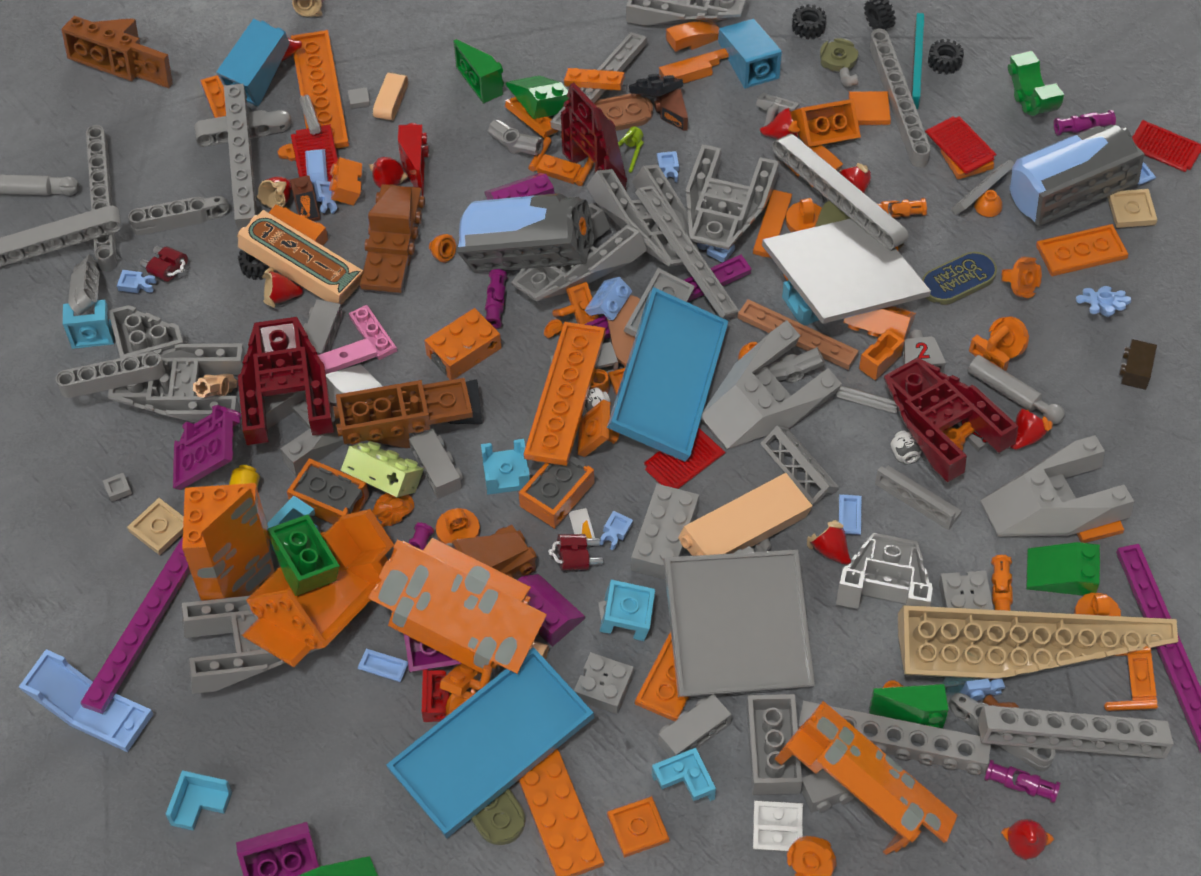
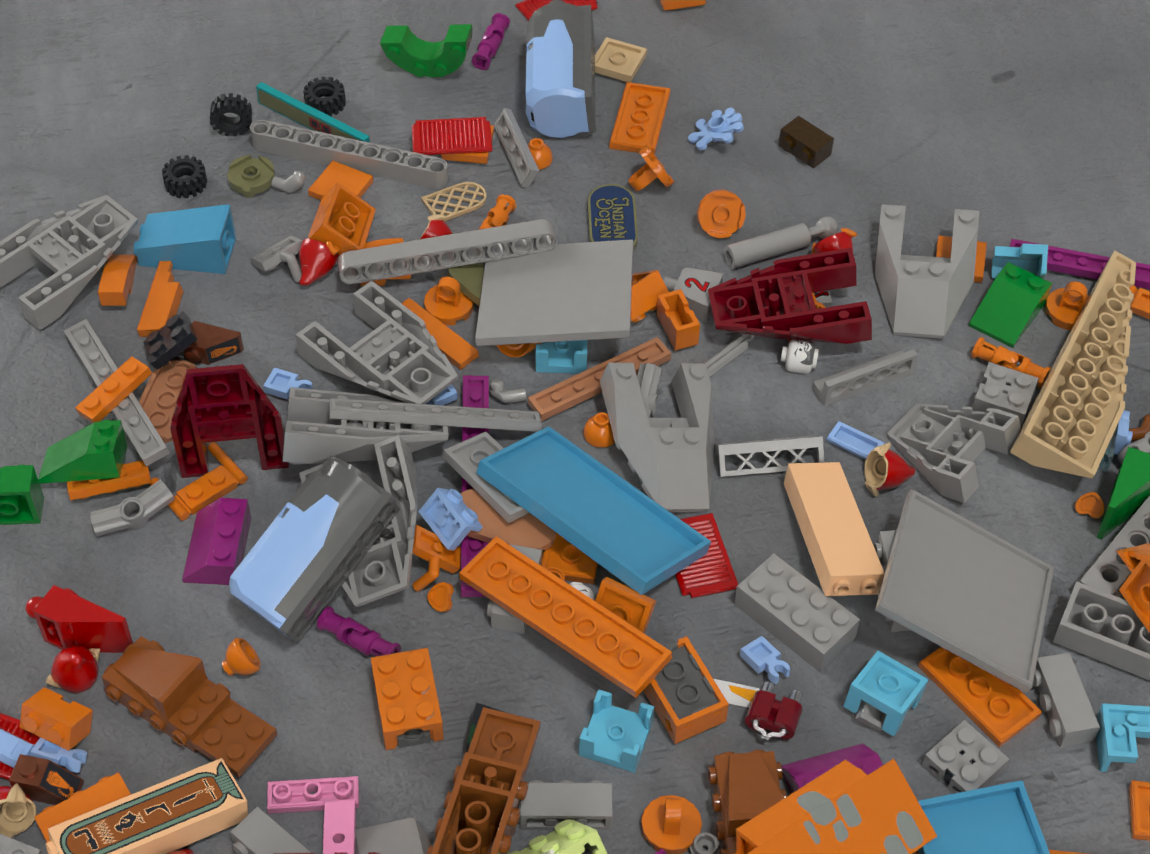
camera: 65 degrees left, 5 degrees down
(745, 287) = (504, 395): none -> light grey arm
(896, 184) = (450, 215): none -> tan window
(988, 348) = (715, 241): orange plate -> none
(1113, 558) = (1028, 257): none -> medium azure panel

